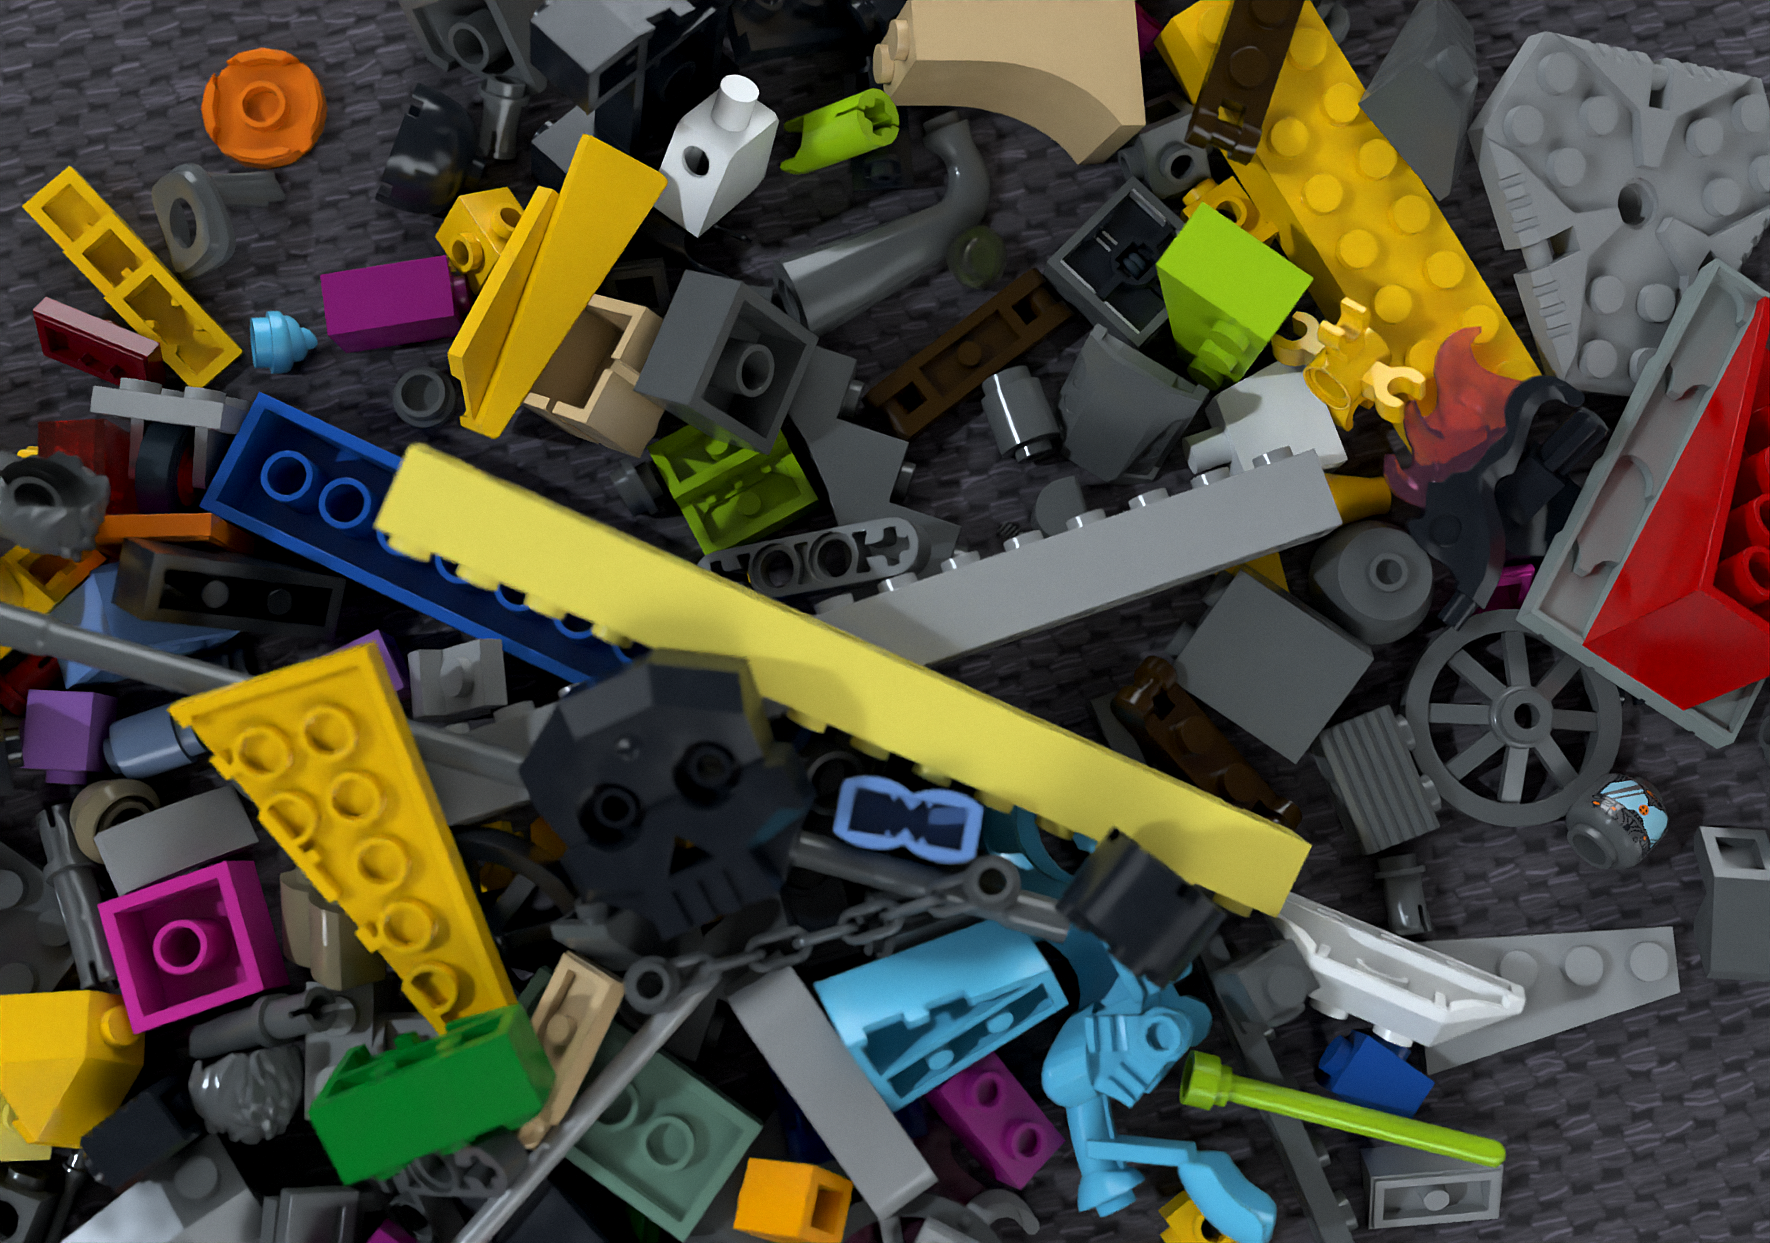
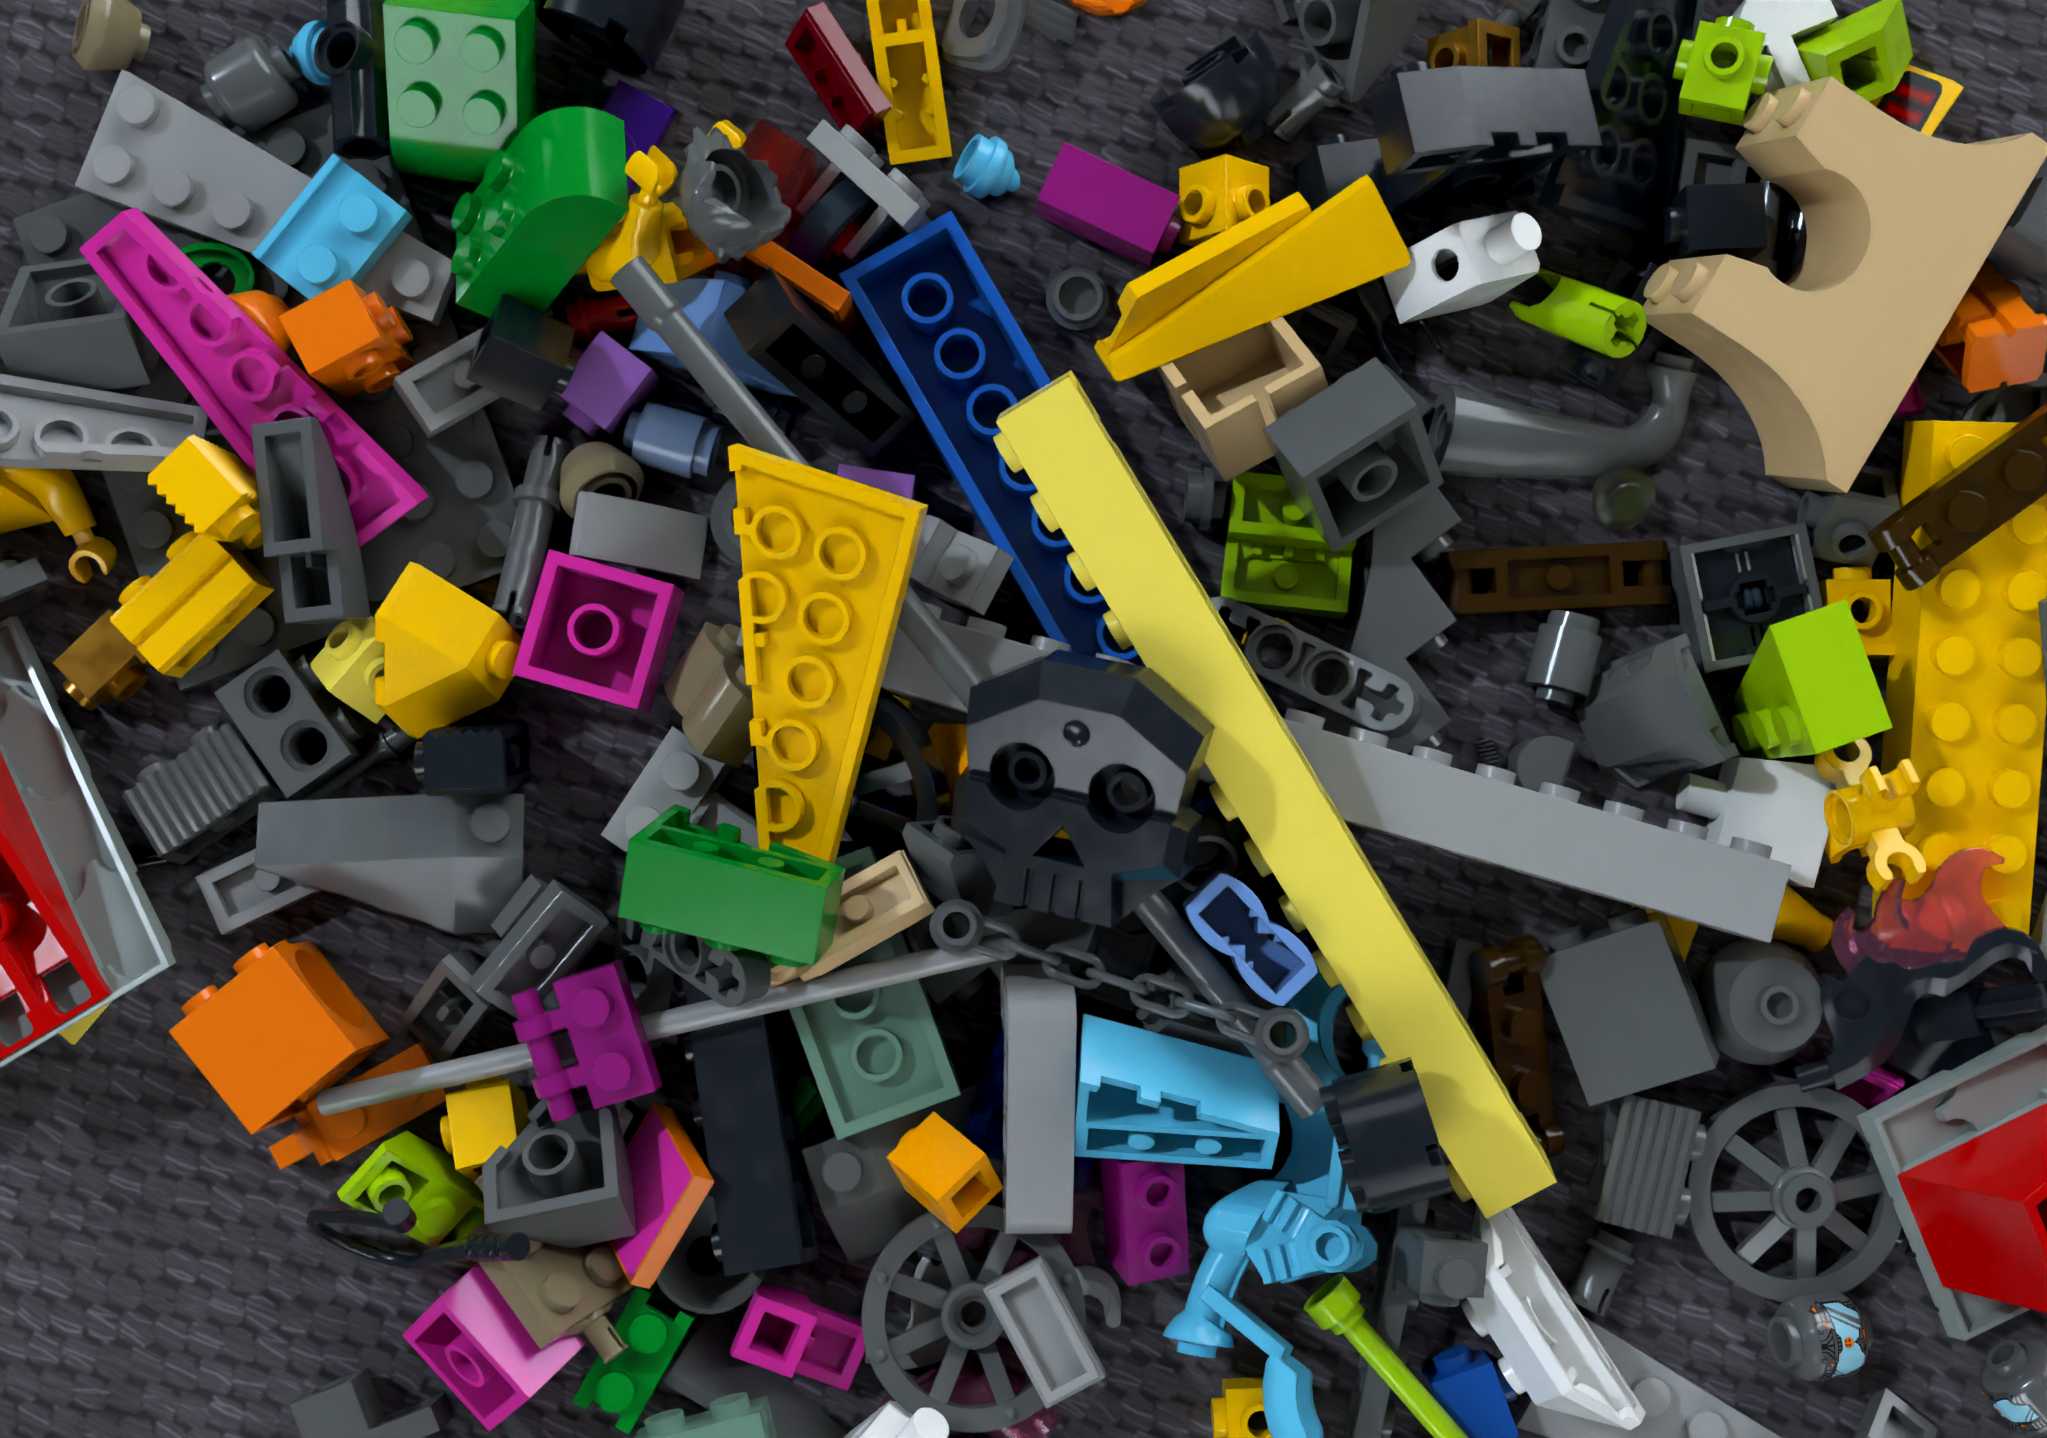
camera: 35 degrees right, 5 degrees up
(249, 1093) = (571, 784): dark grey hair -> none
(269, 1023) = (622, 737): dark grey pin -> none

